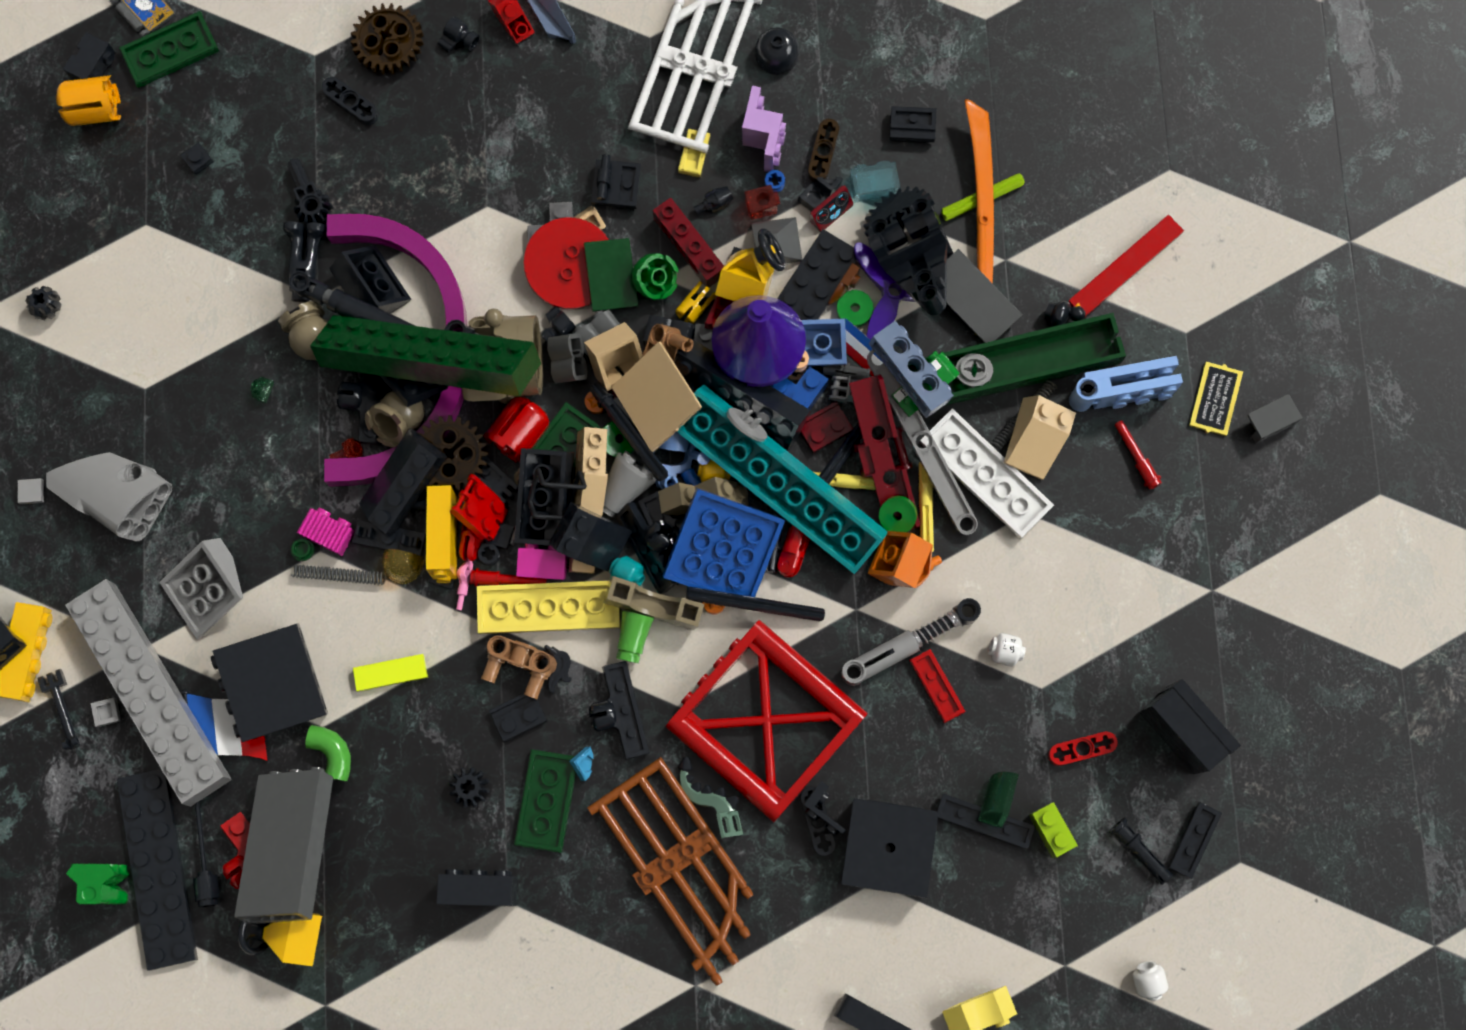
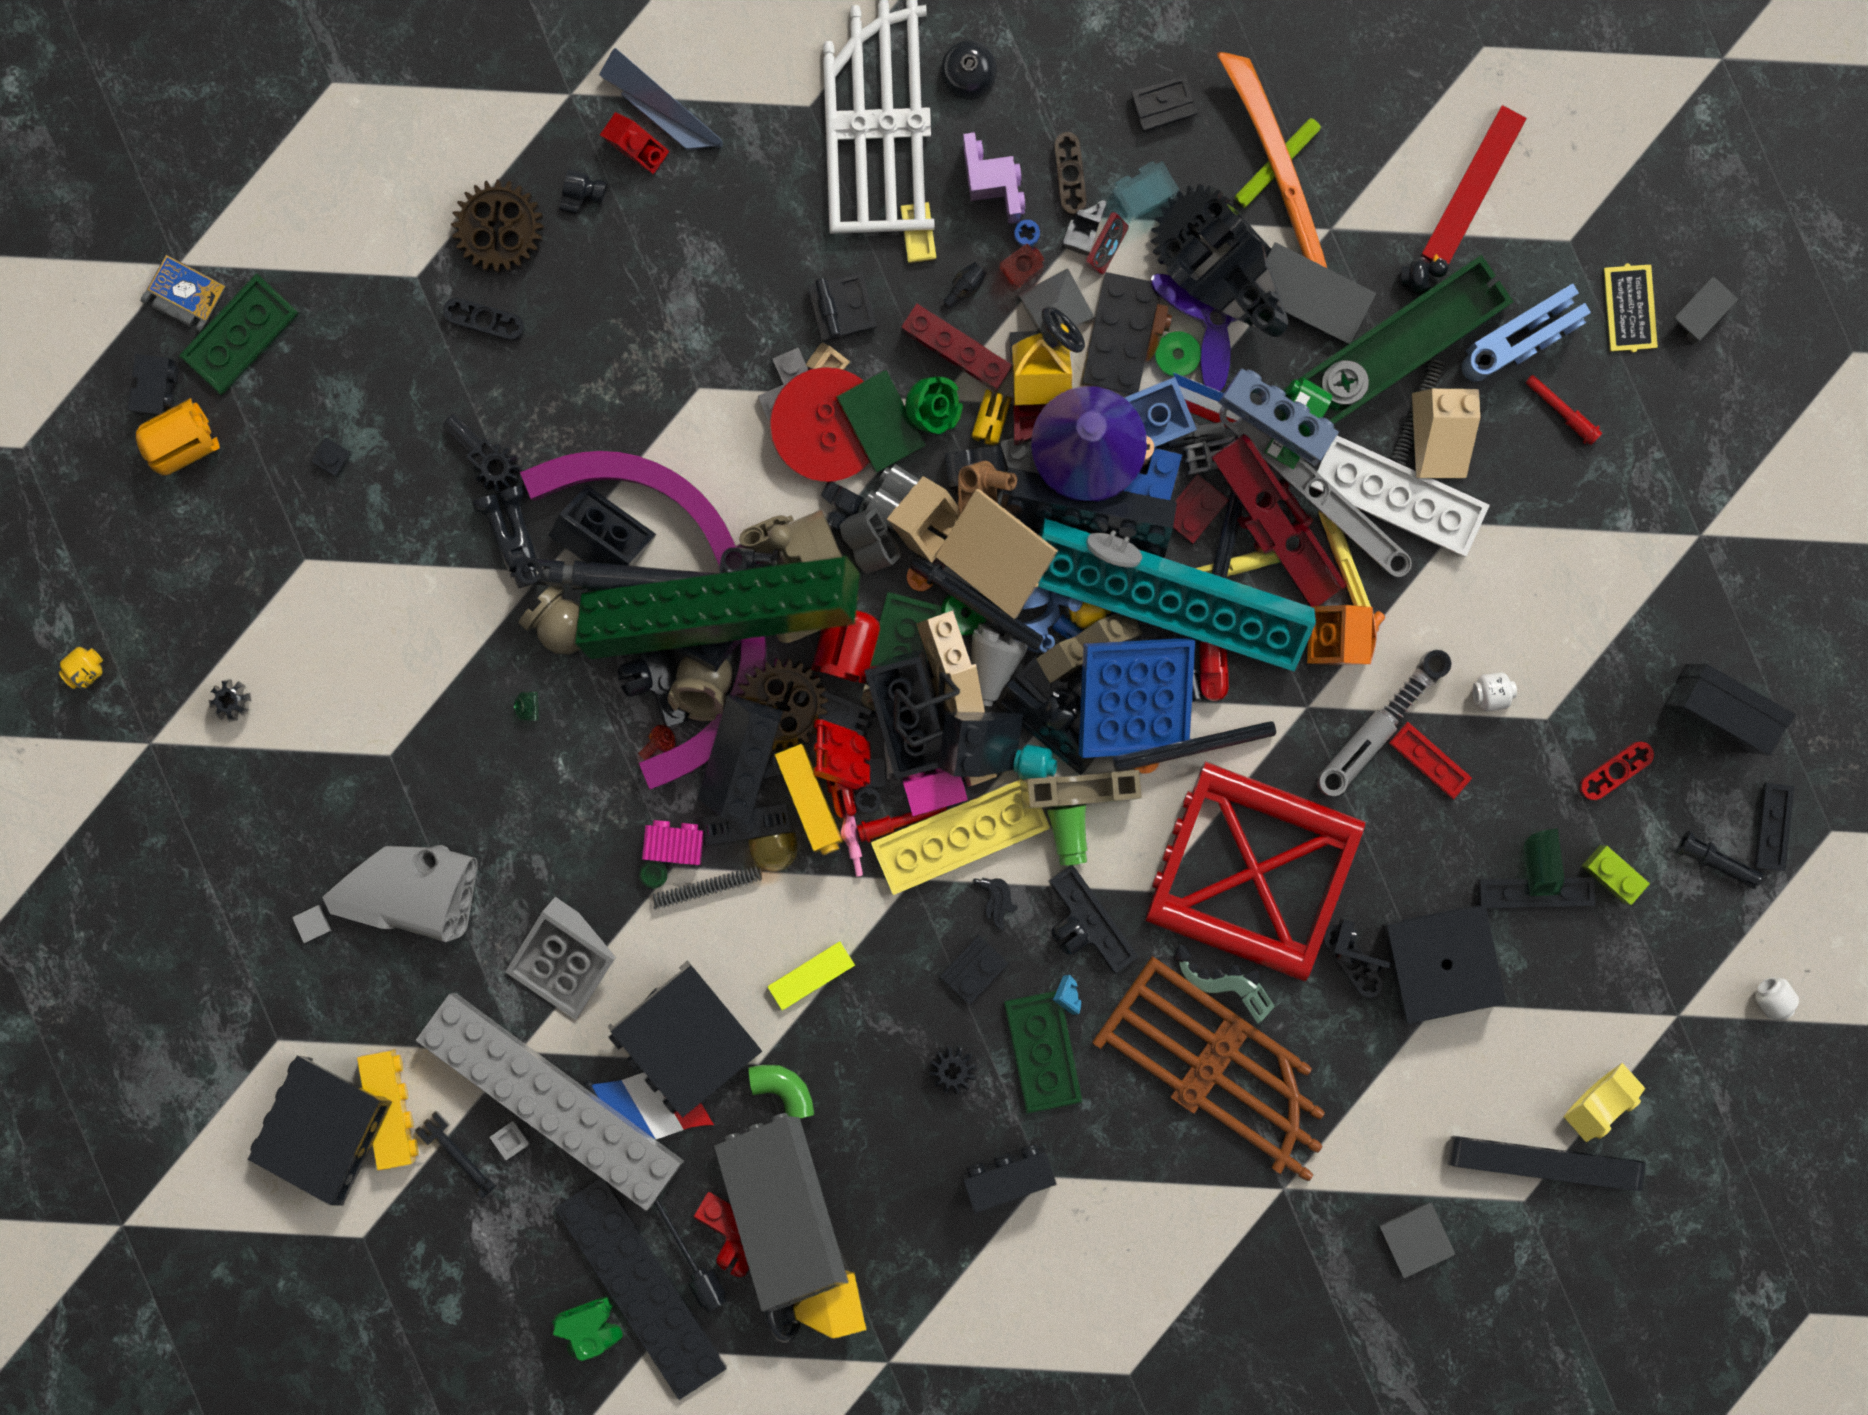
camera: 25 degrees left, 10 degrees up
(522, 656) = (954, 903): medium nougat piece -> none
(898, 504) = (1313, 572): green piece -> none

